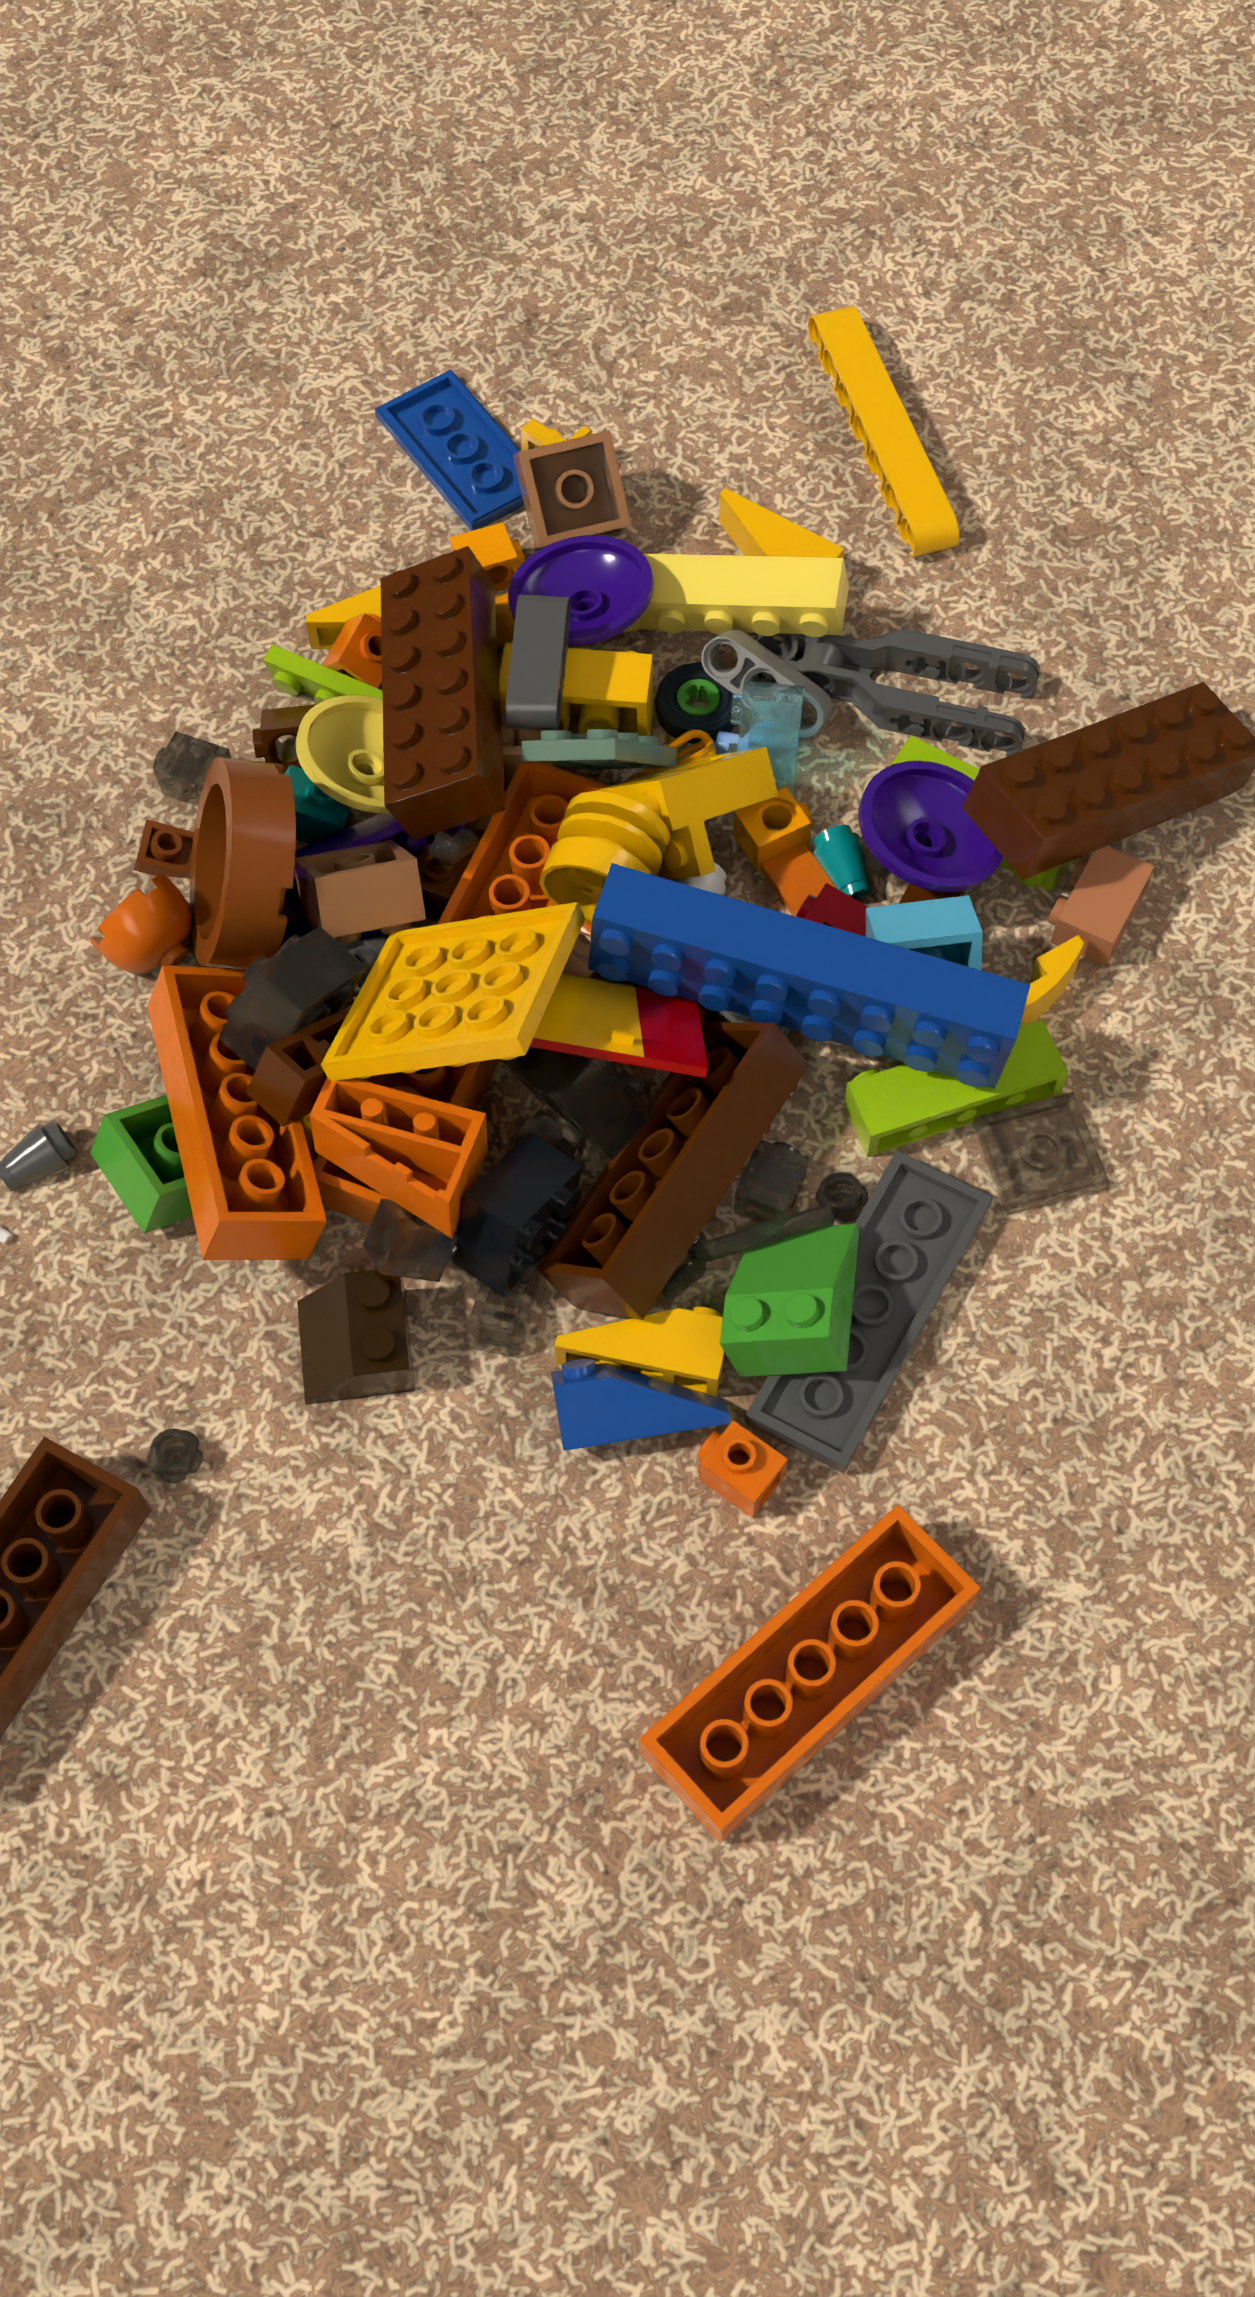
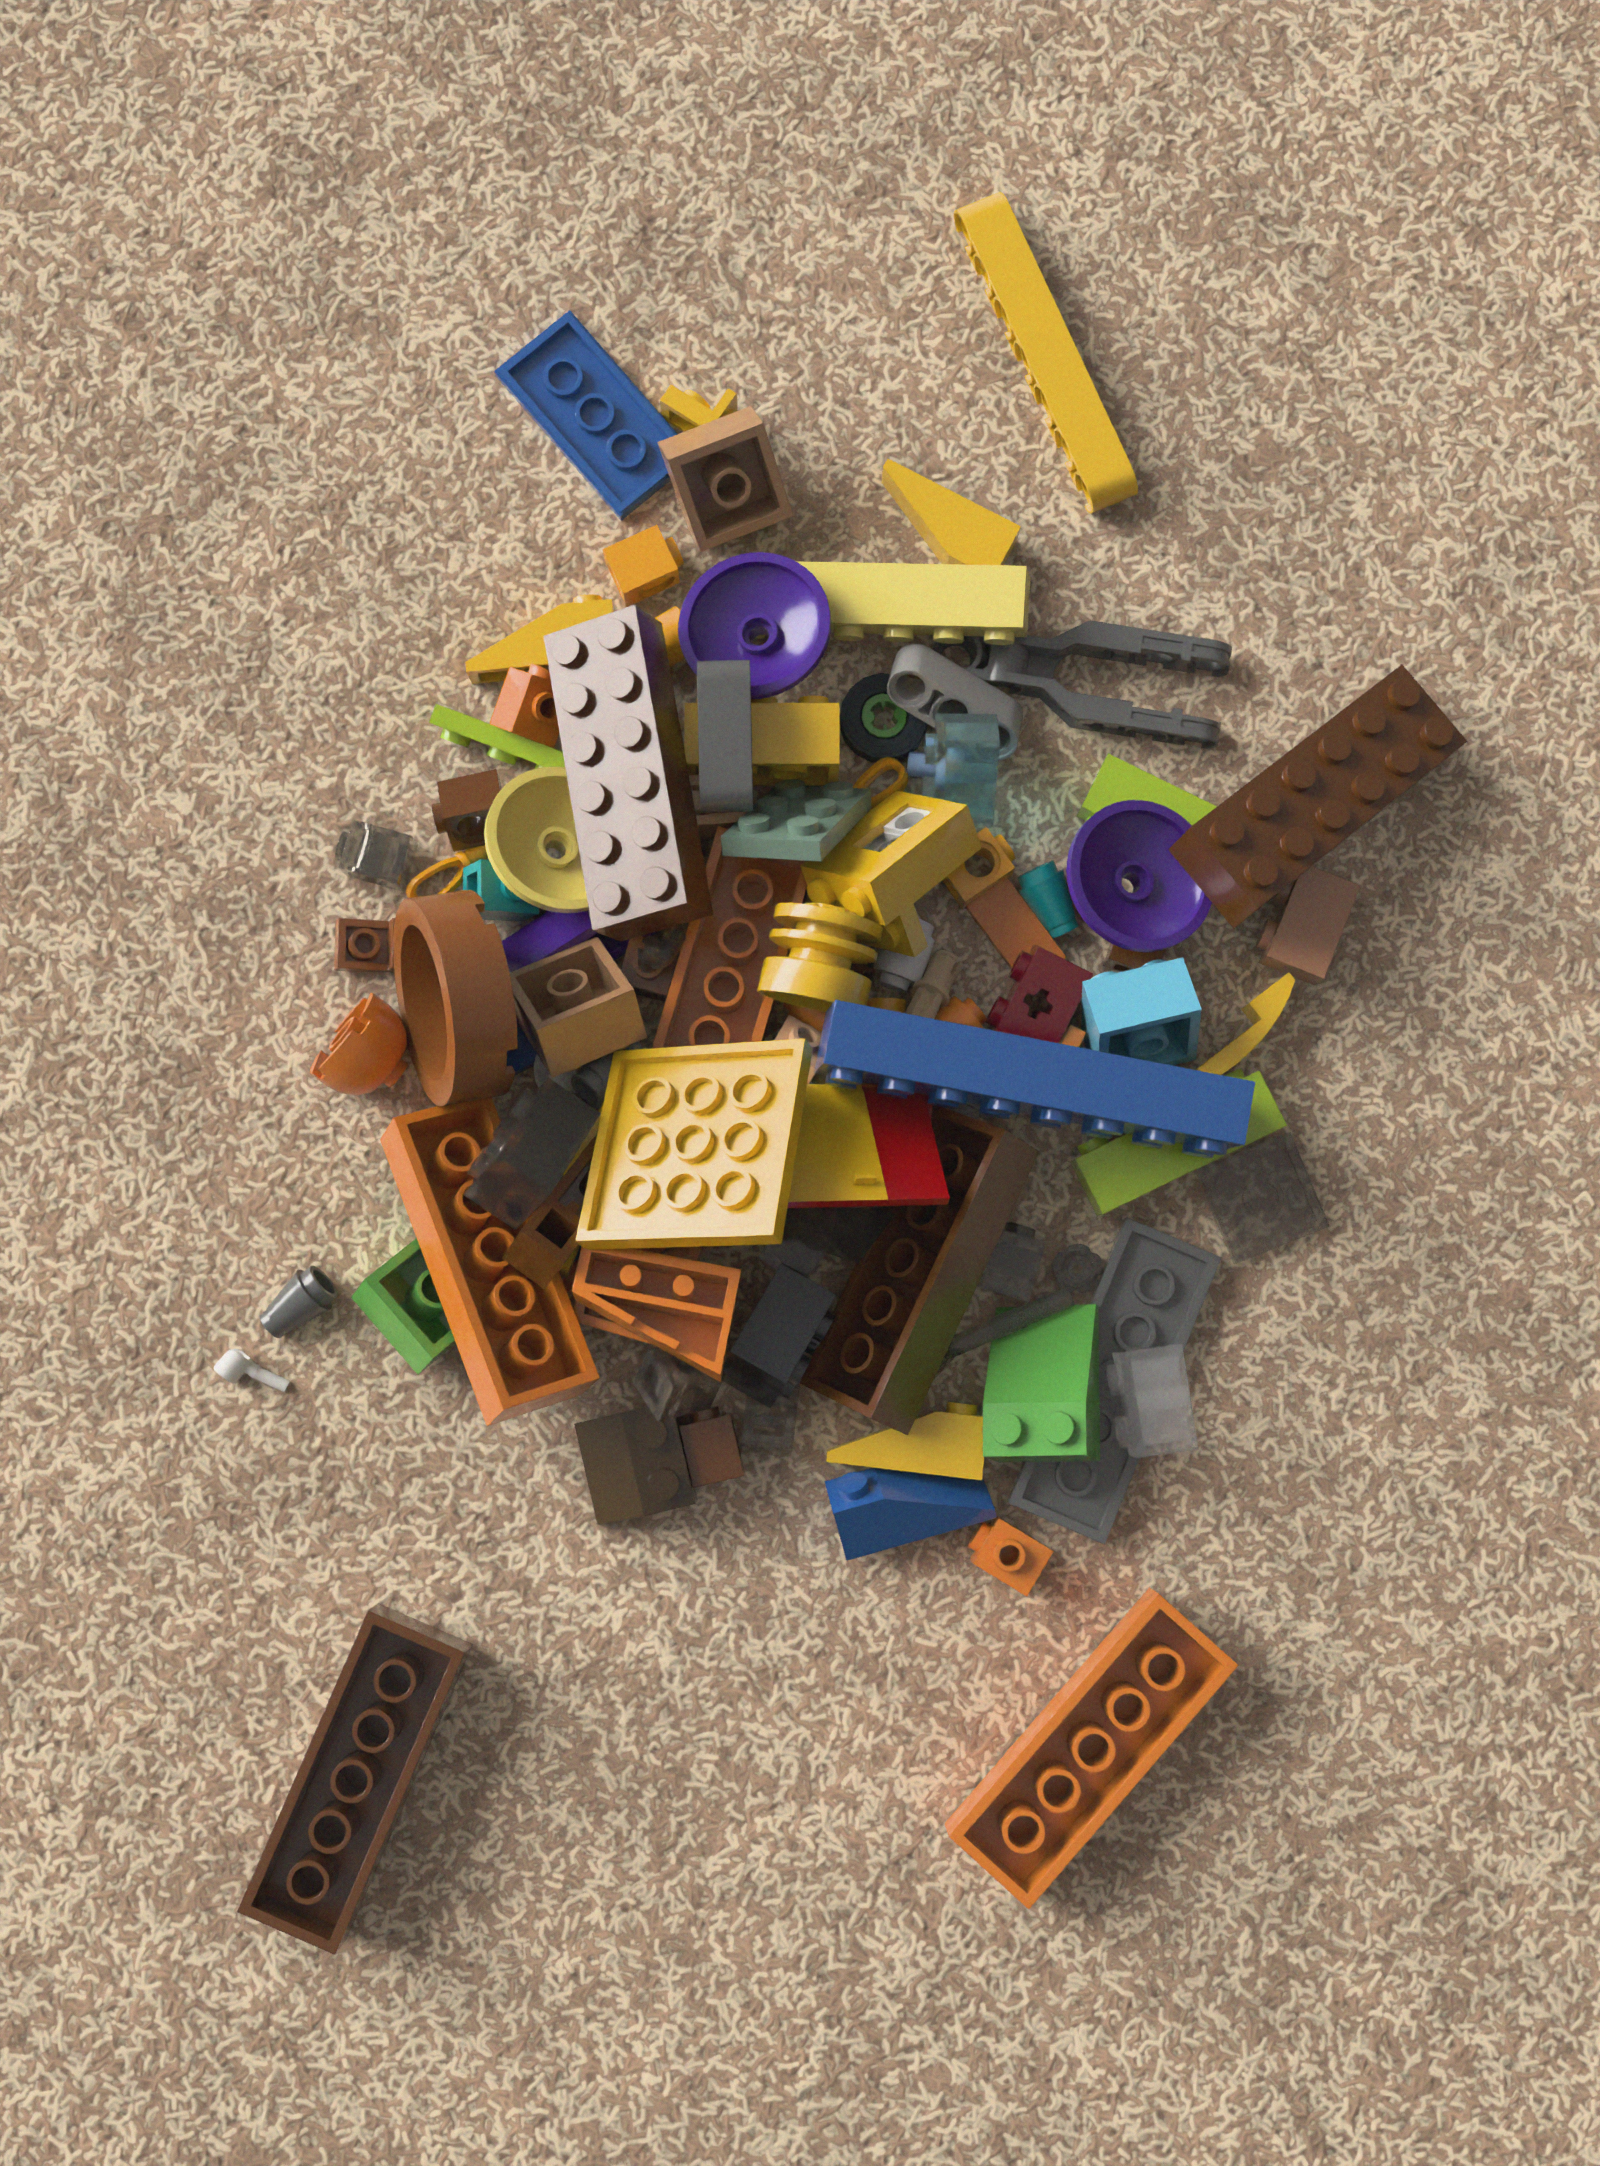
camera: 10 degrees left, 20 degrees up
(174, 1441) = (474, 1599): clear smoke plate -> none
(436, 1331) = (711, 1447): none -> reddish brown brick
(909, 1316) = (1153, 1401): none -> clear brick

